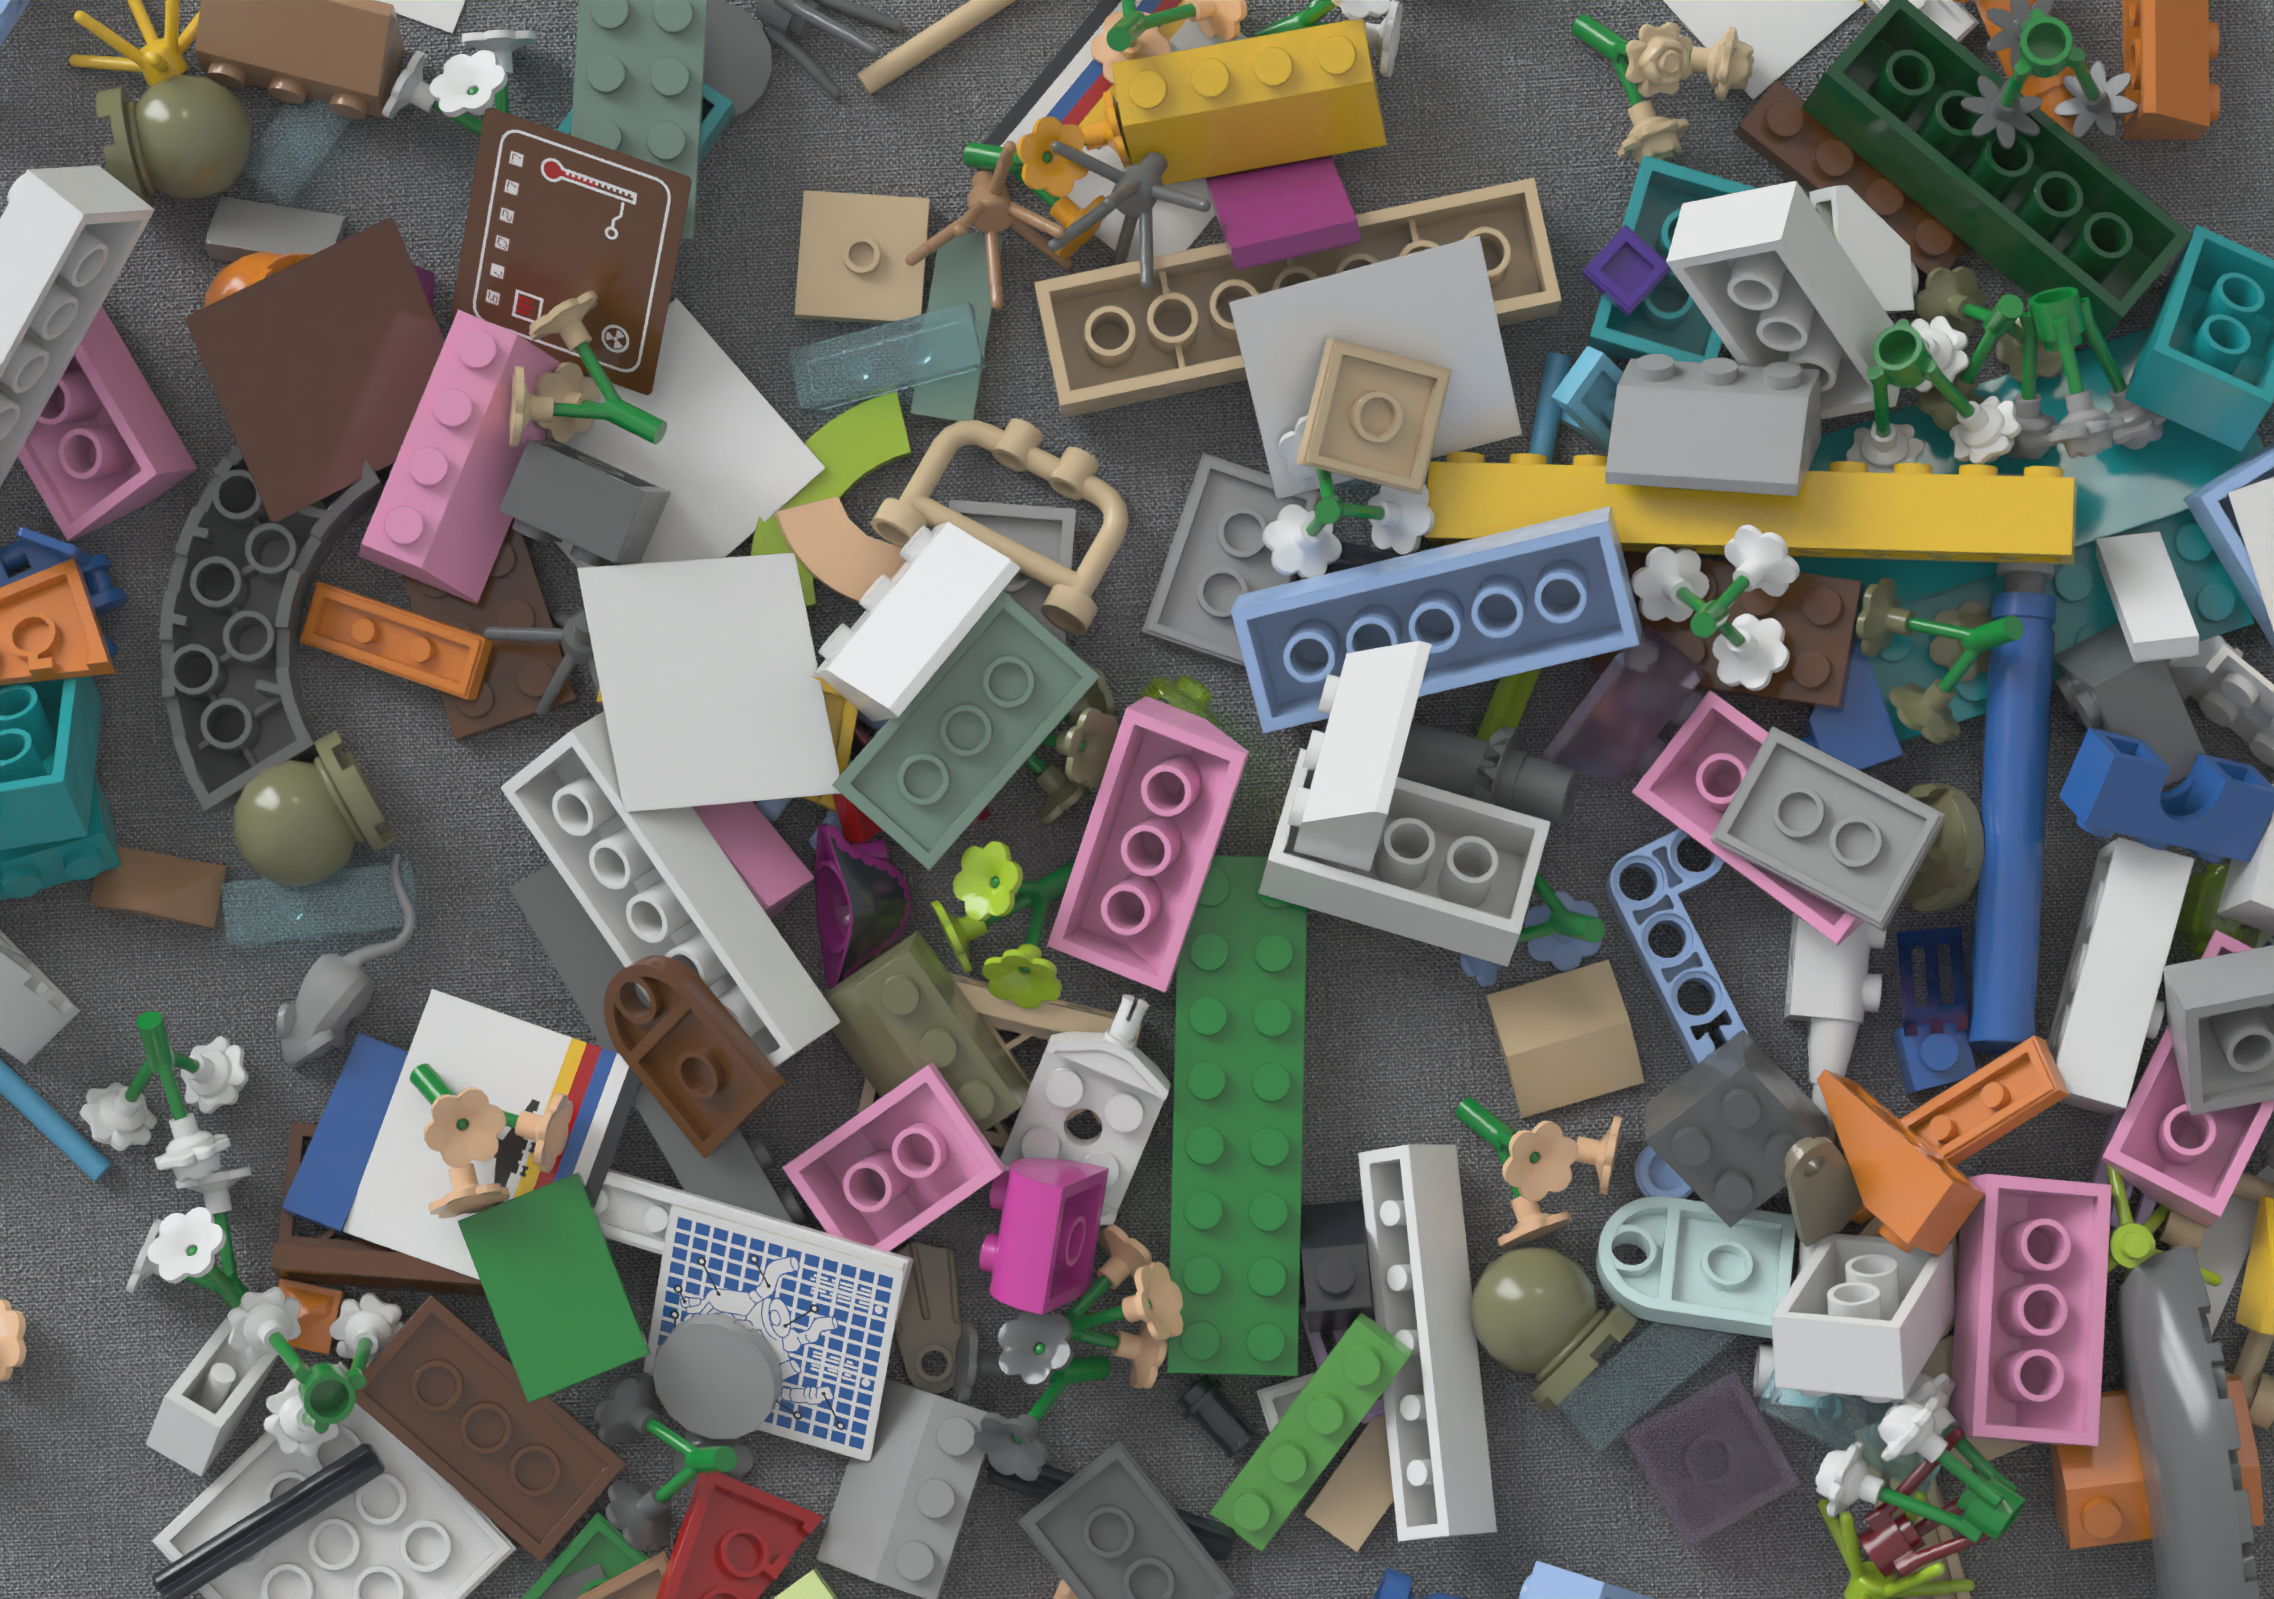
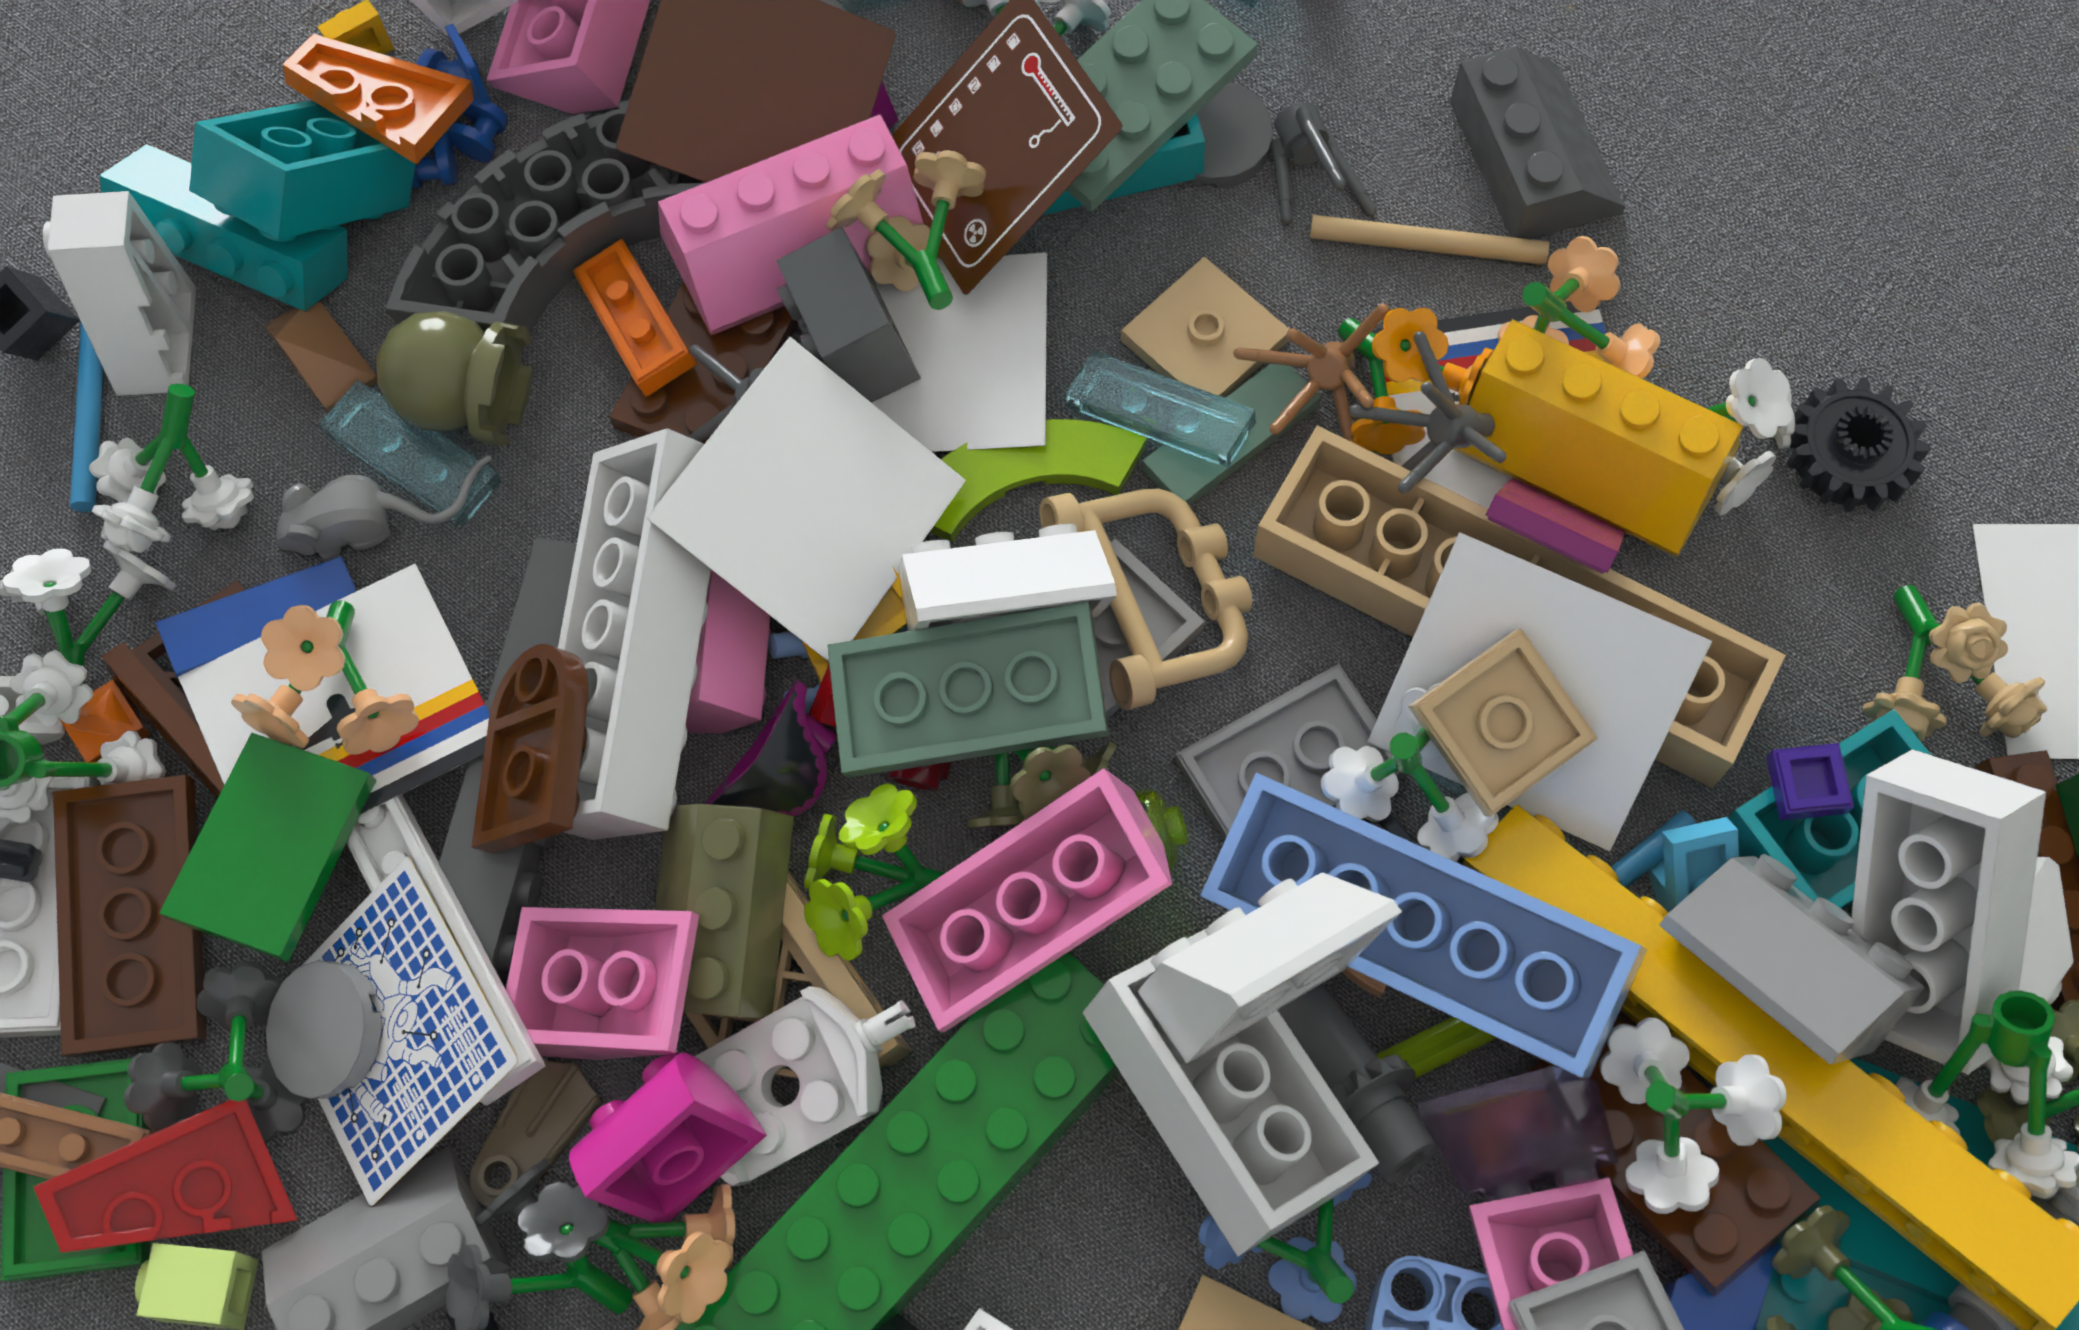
camera: 40 degrees right, 15 degrees down
(835, 548) = (998, 494): light nougat tile -> none

